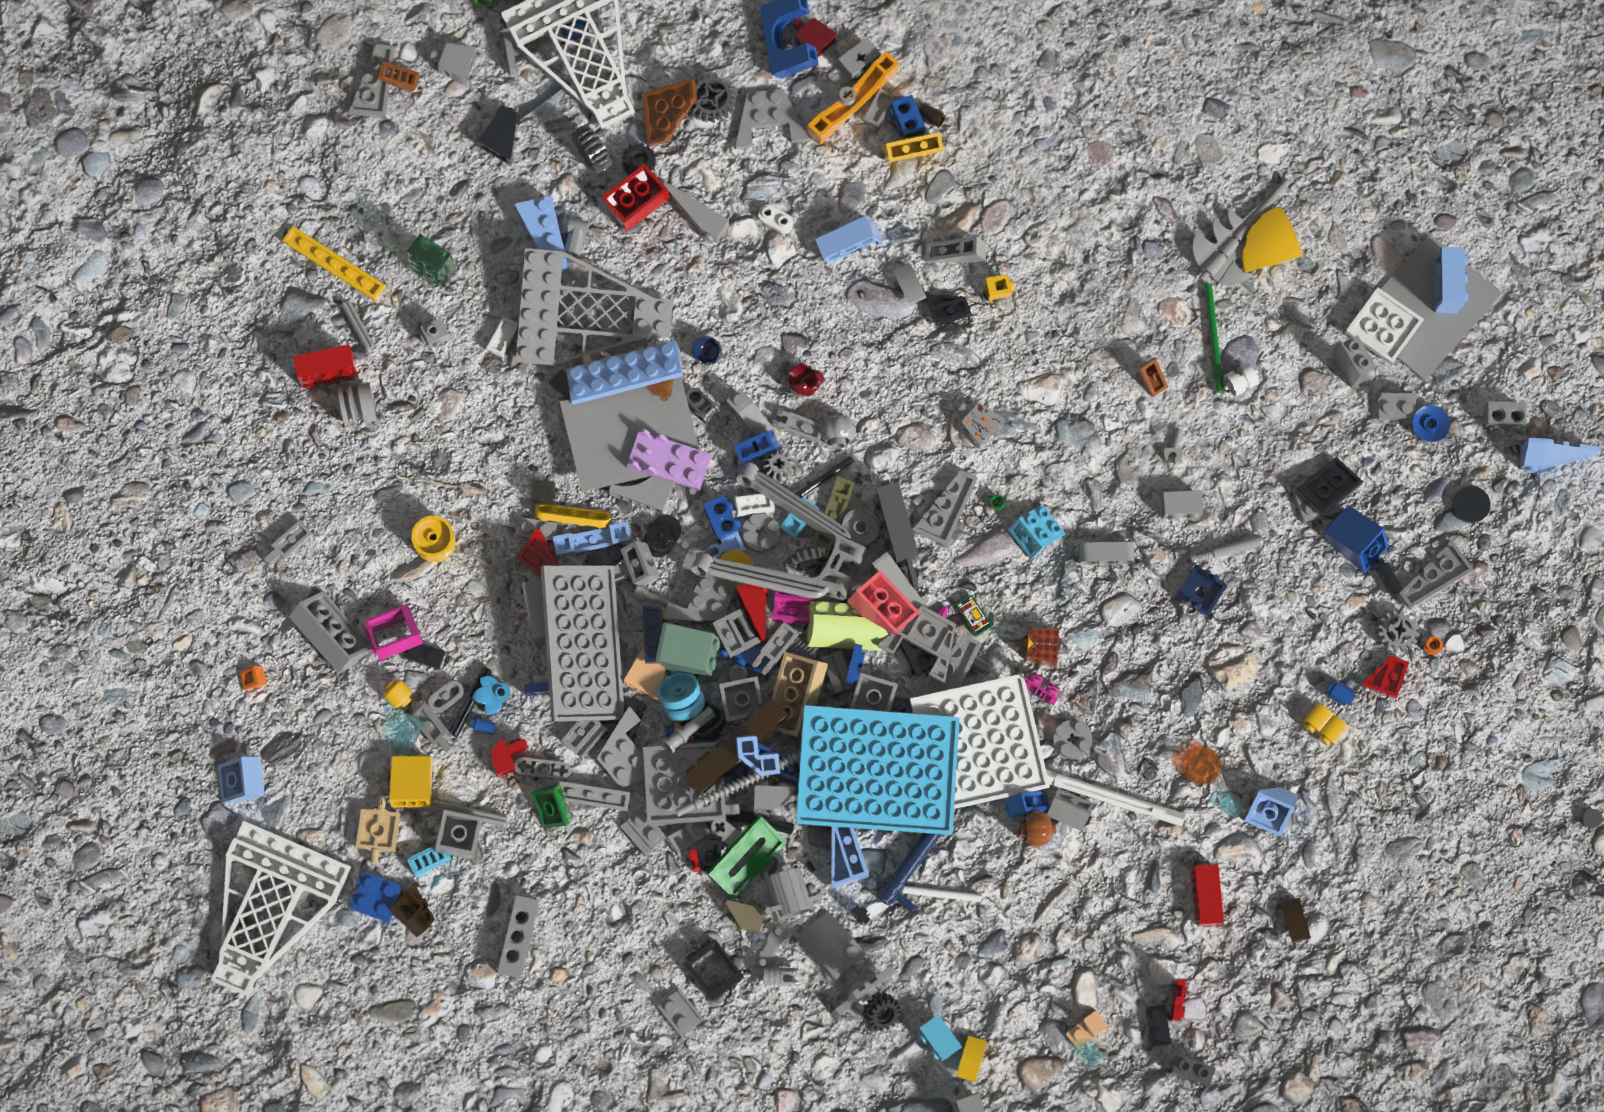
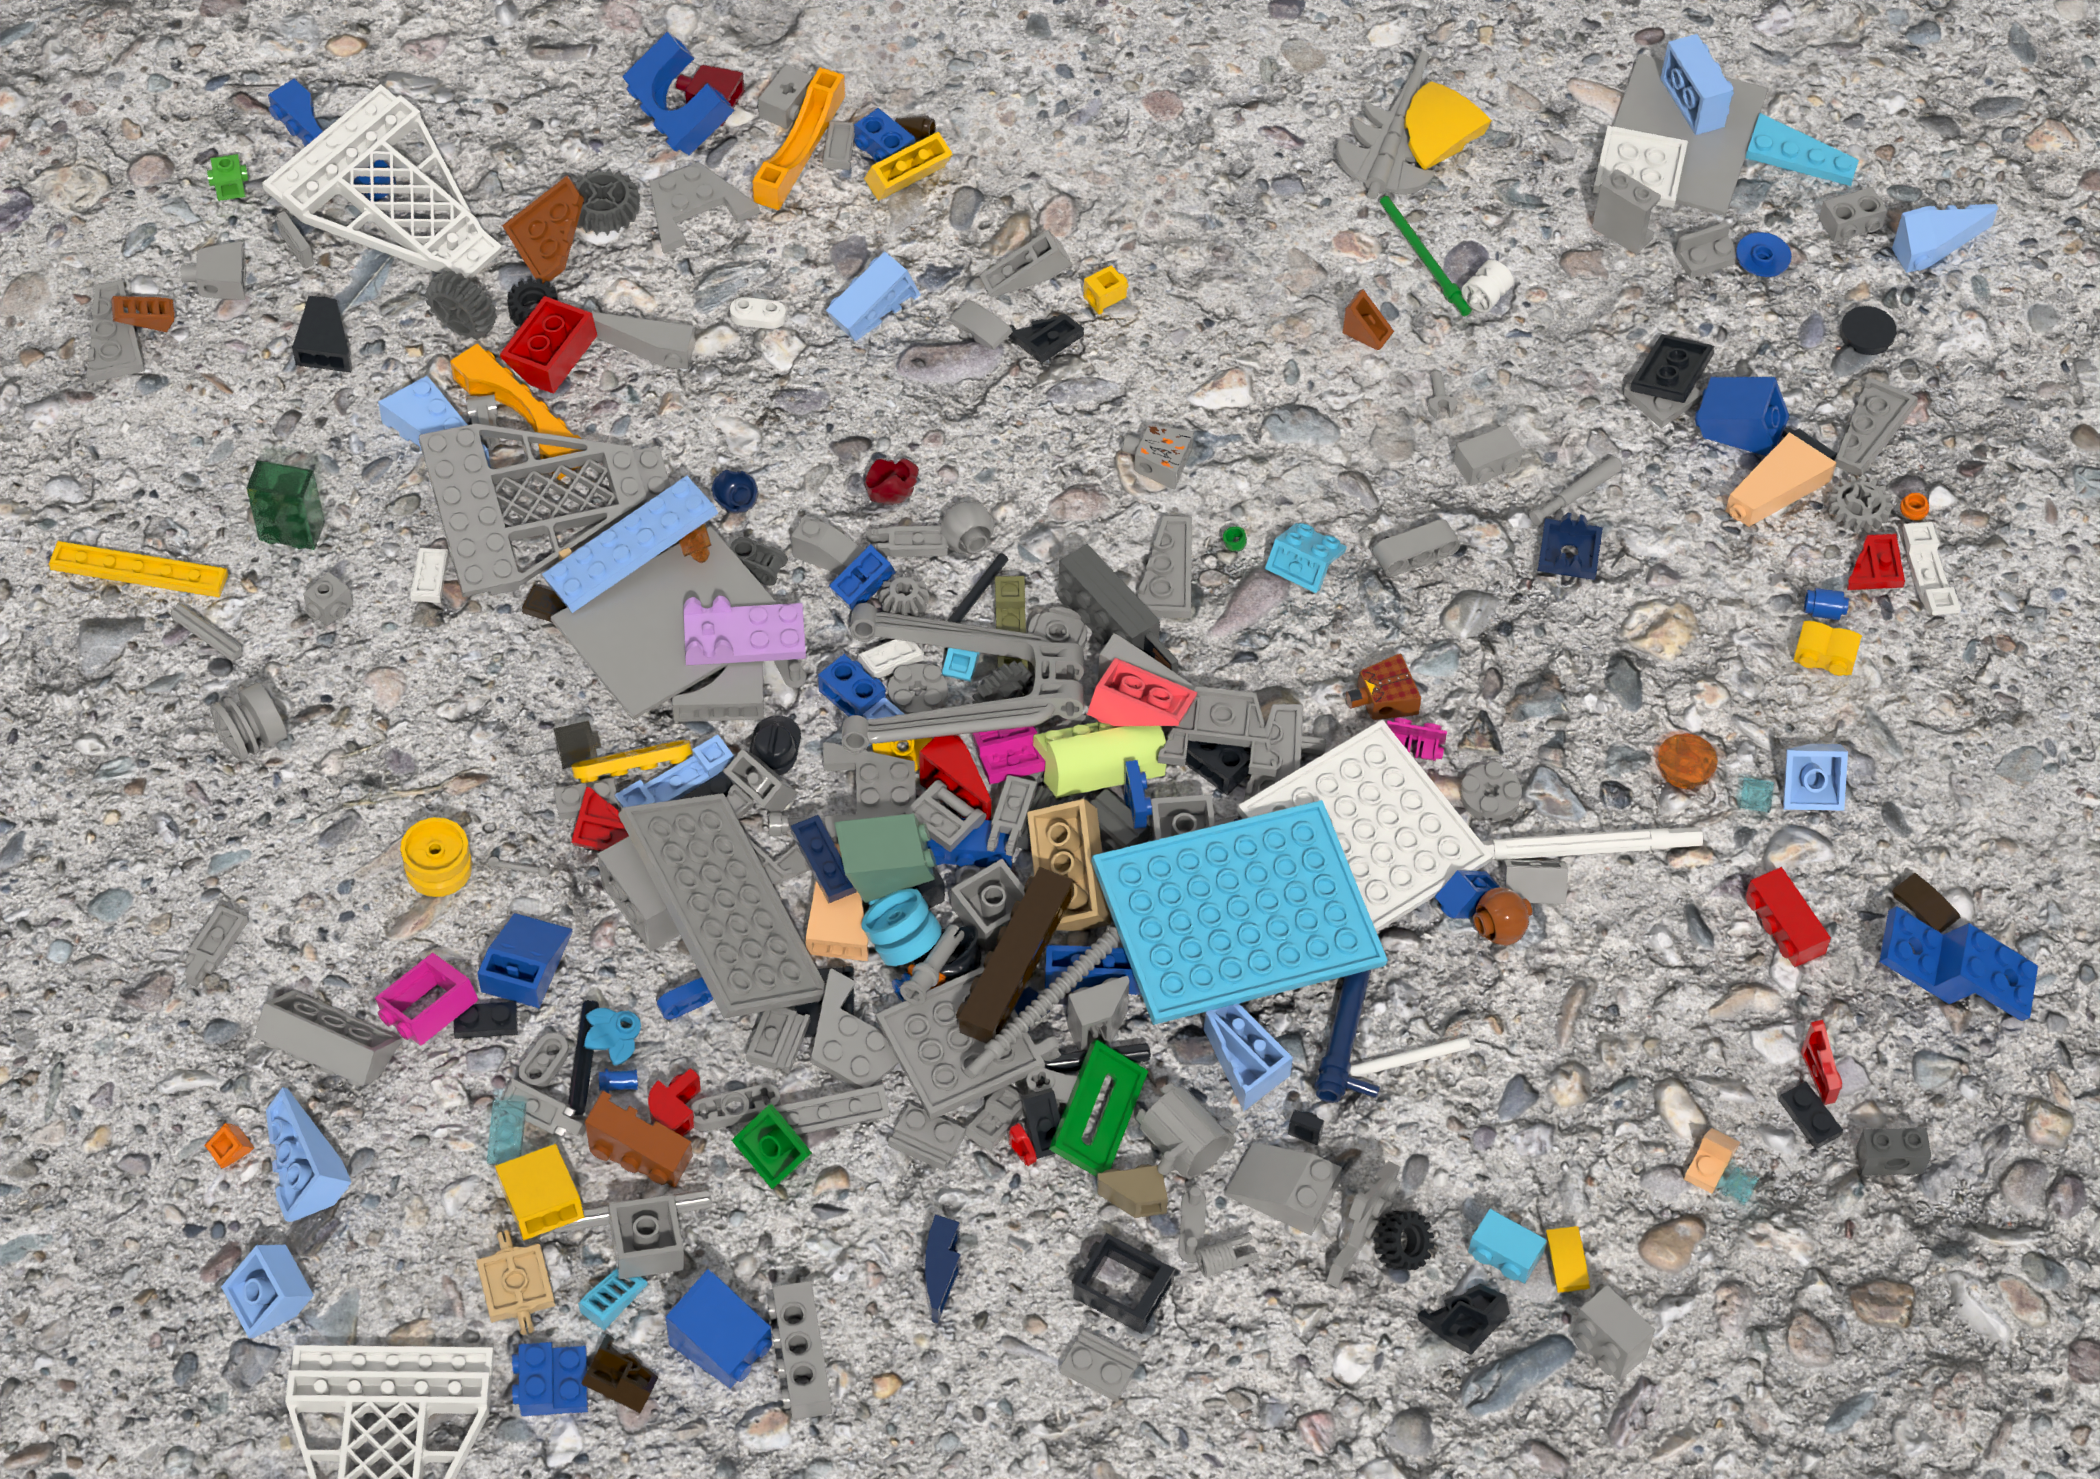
camera: 20 degrees left, 20 degrees down
(290, 712) = (307, 1165): none -> light blue wedge
(325, 366) = (179, 690): red brick -> none
(397, 693) = (467, 1082): yellow head -> none
(460, 625) = (523, 960): none -> blue slope
(476, 909) = (718, 1330): none -> blue slope
(477, 773) = (636, 1144): none -> dark orange wedge
(587, 204) = (482, 376): none -> light orange arch
(616, 917) = (941, 1264): none -> dark blue slope
(761, 763) = (1043, 944): light blue brick -> none
(847, 90) = (793, 131): light grey bush -> none
(899, 1069) = (1468, 1317): none -> black slope
(974, 615) = (1271, 686): tile -> none
(1292, 970) = (1959, 963): none -> blue bracket
(1355, 594) = (1780, 479): none -> light nougat slope
(1417, 695) = (1927, 570): none -> white slope
(1493, 348) = (1793, 150): none -> medium azure wing

